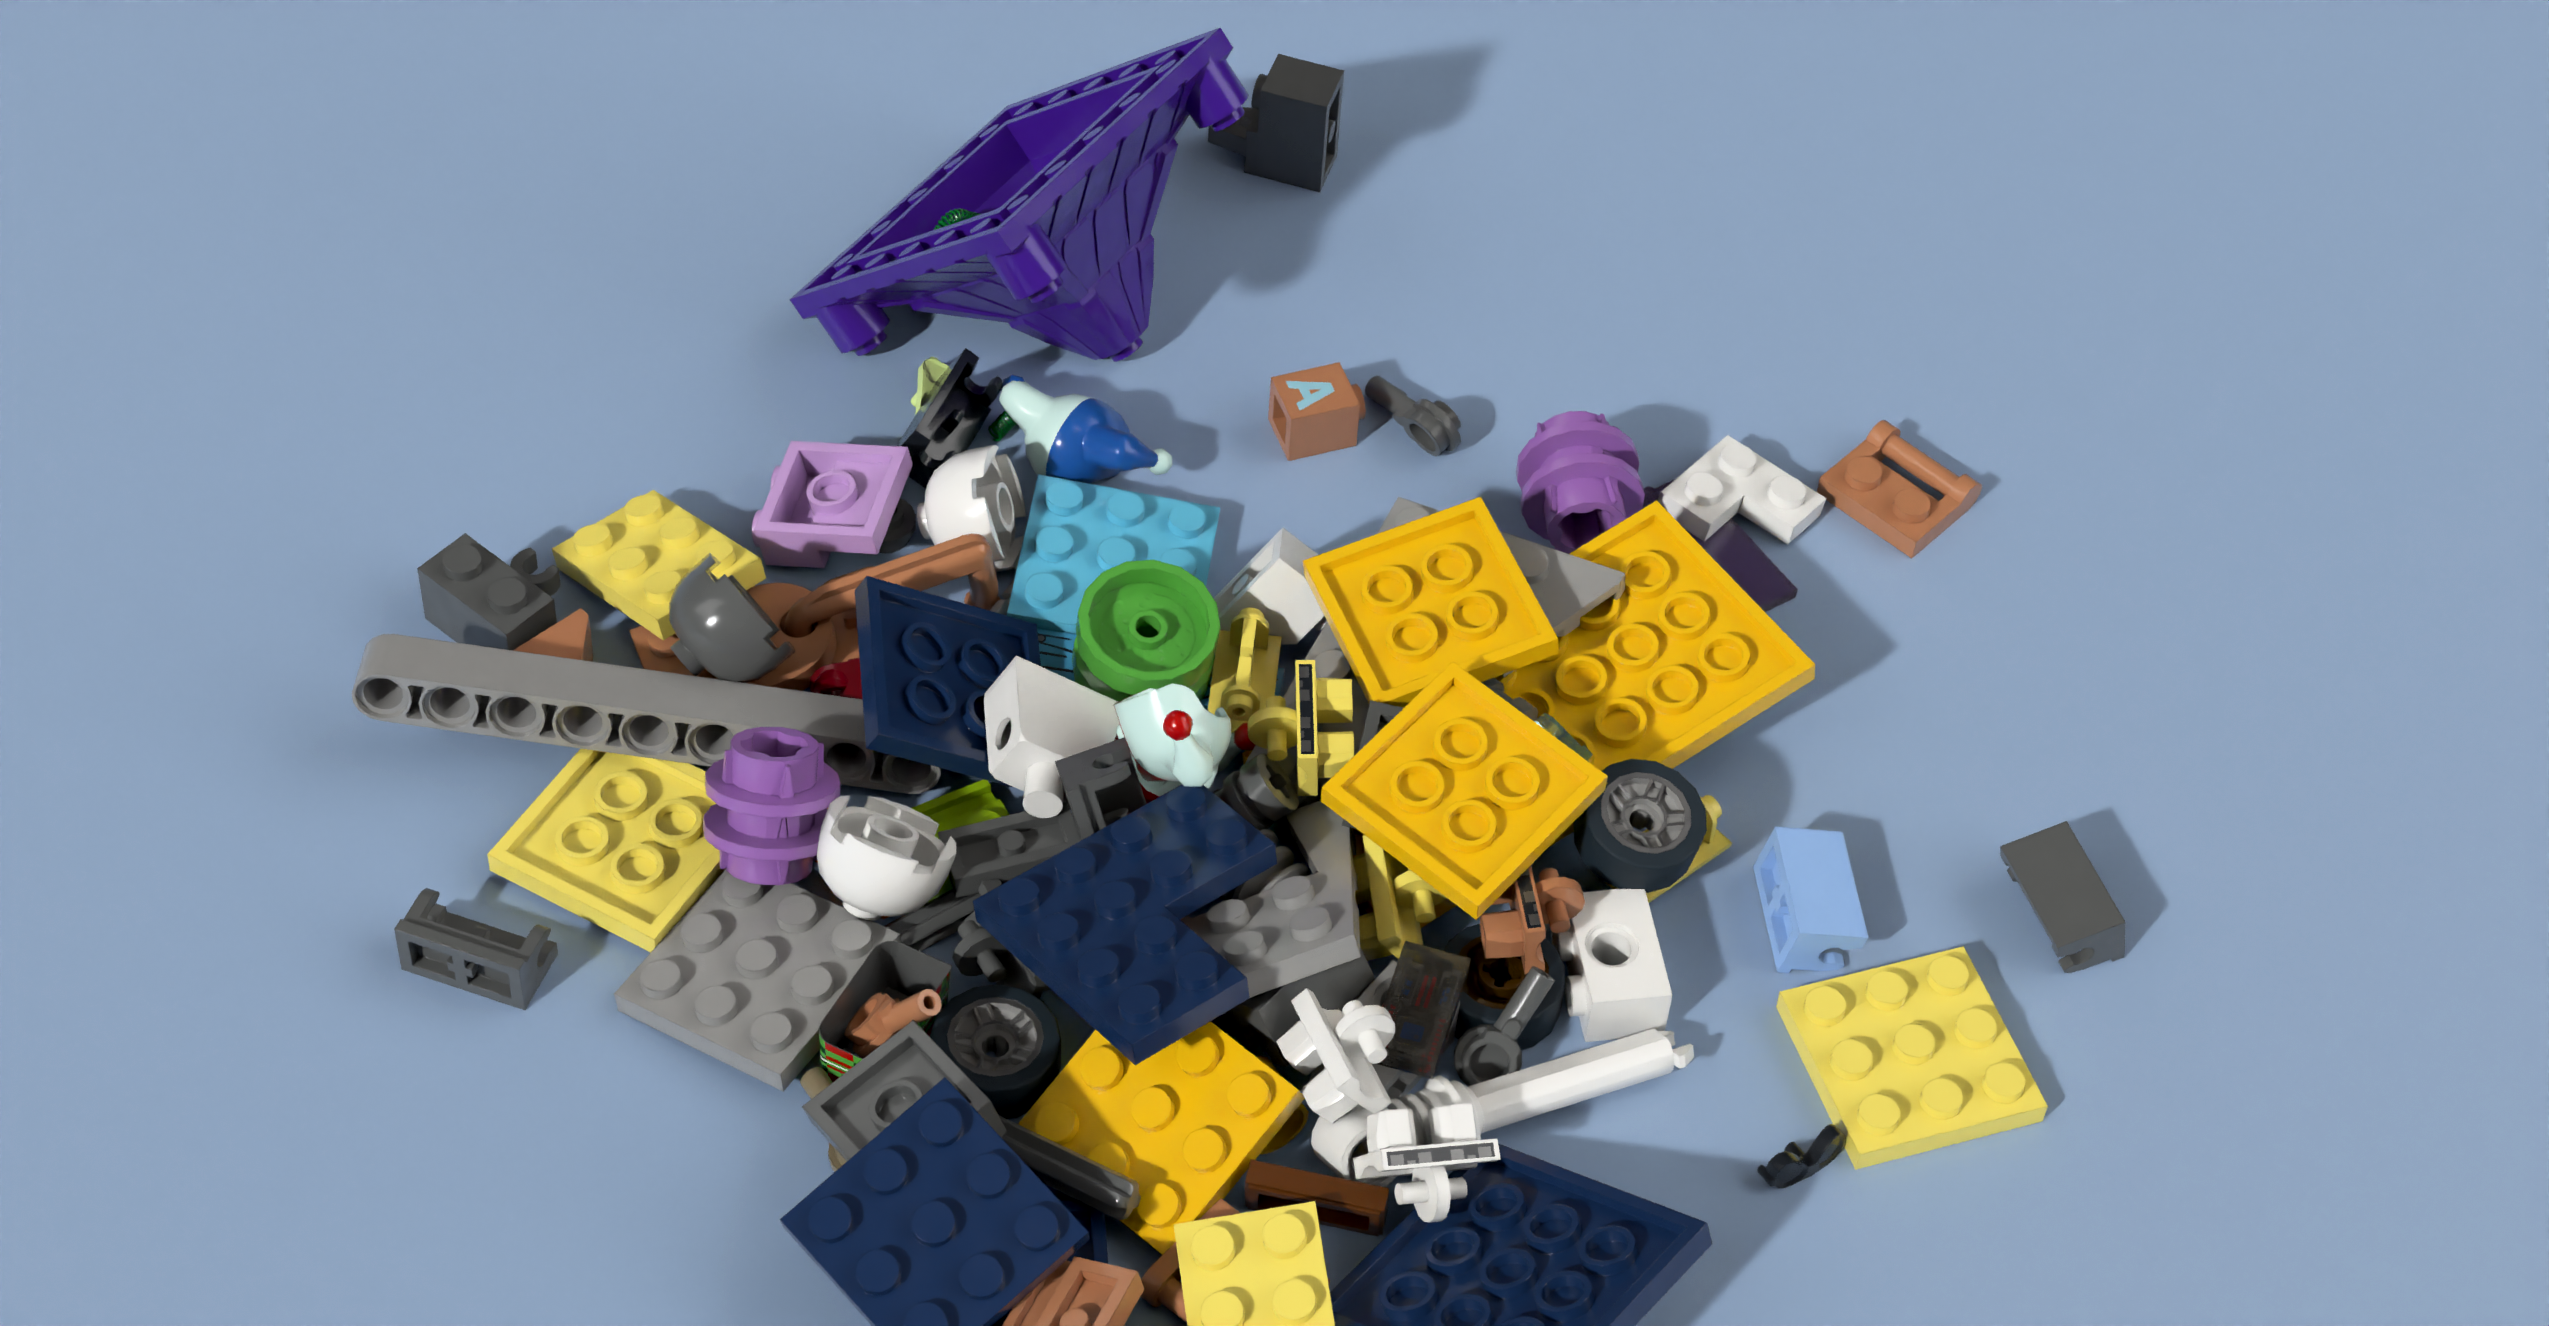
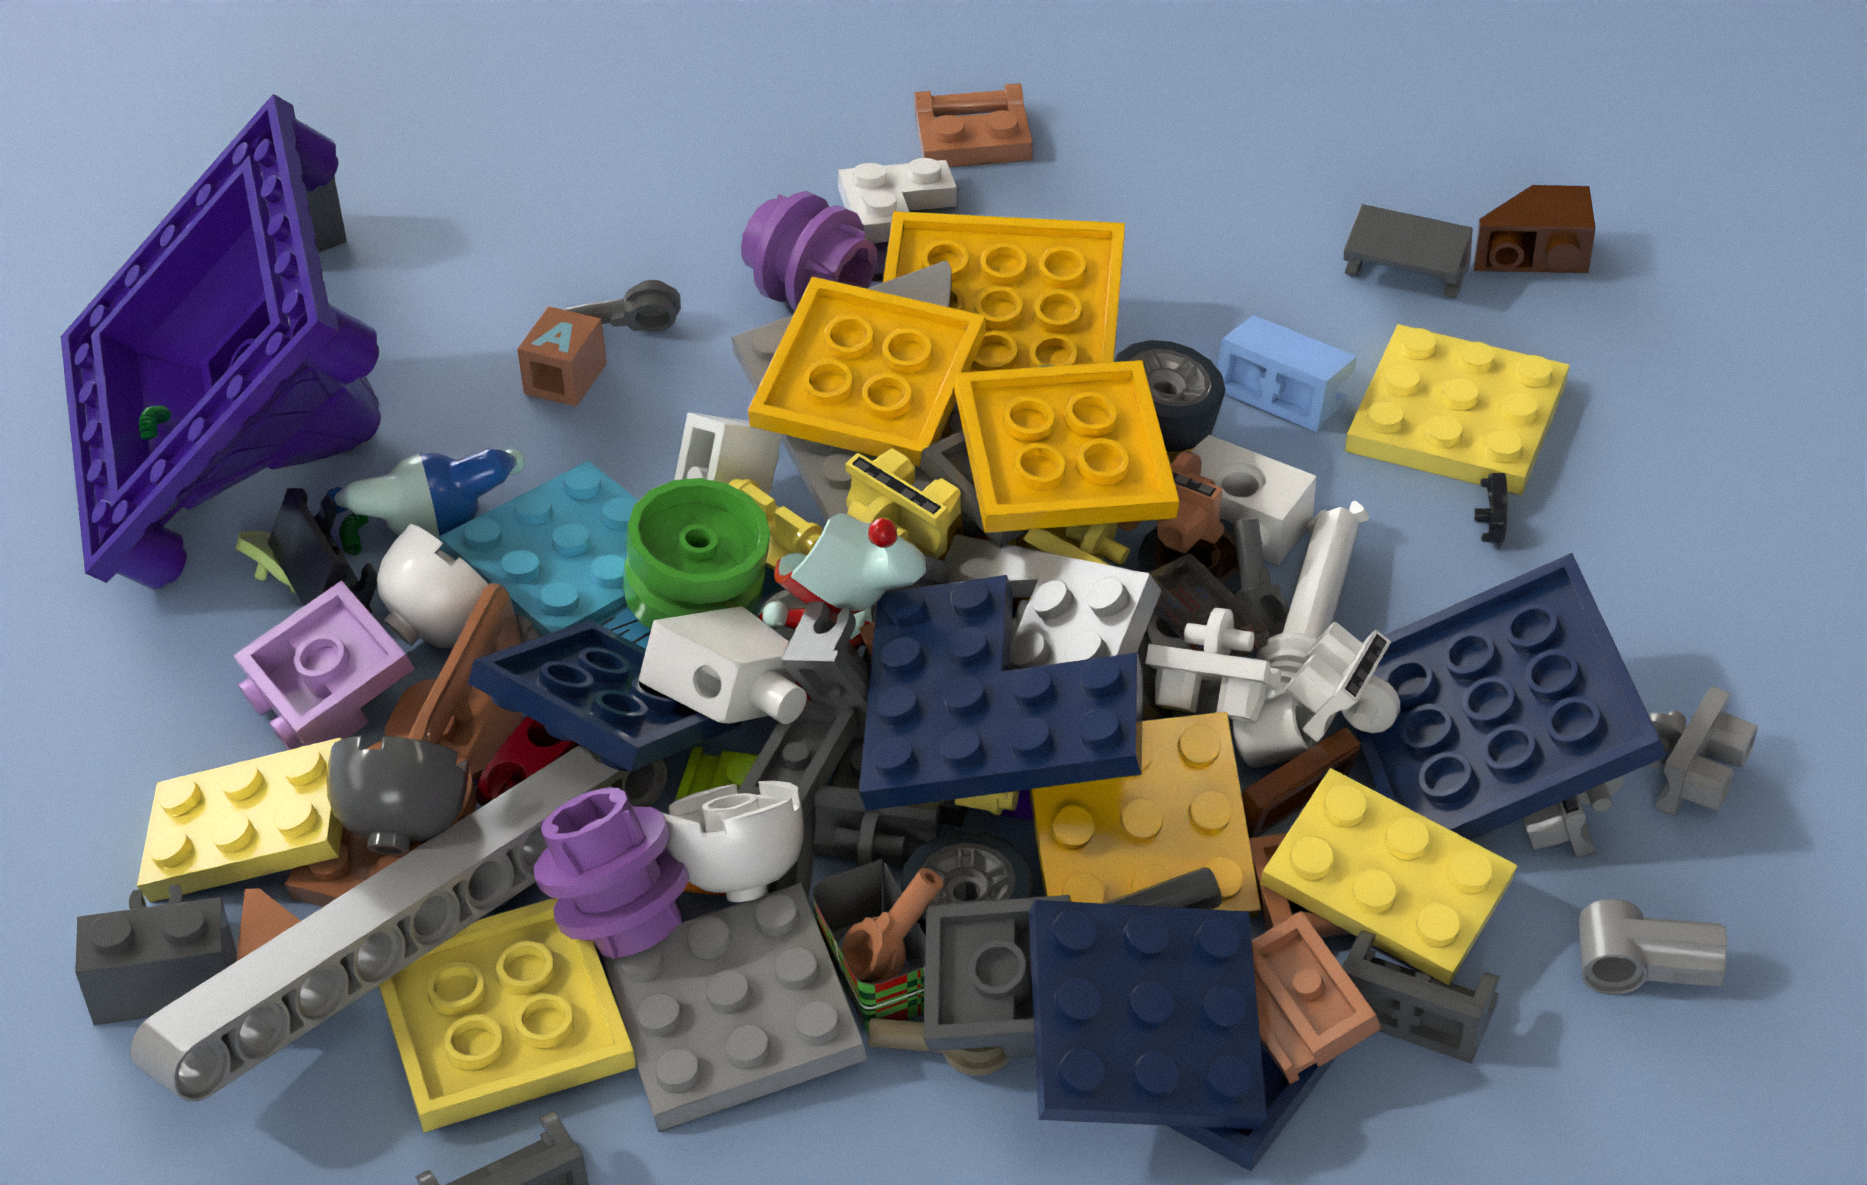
camera: 45 degrees left, 5 degrees down
(2204, 978) = (1538, 232): none -> reddish brown slope

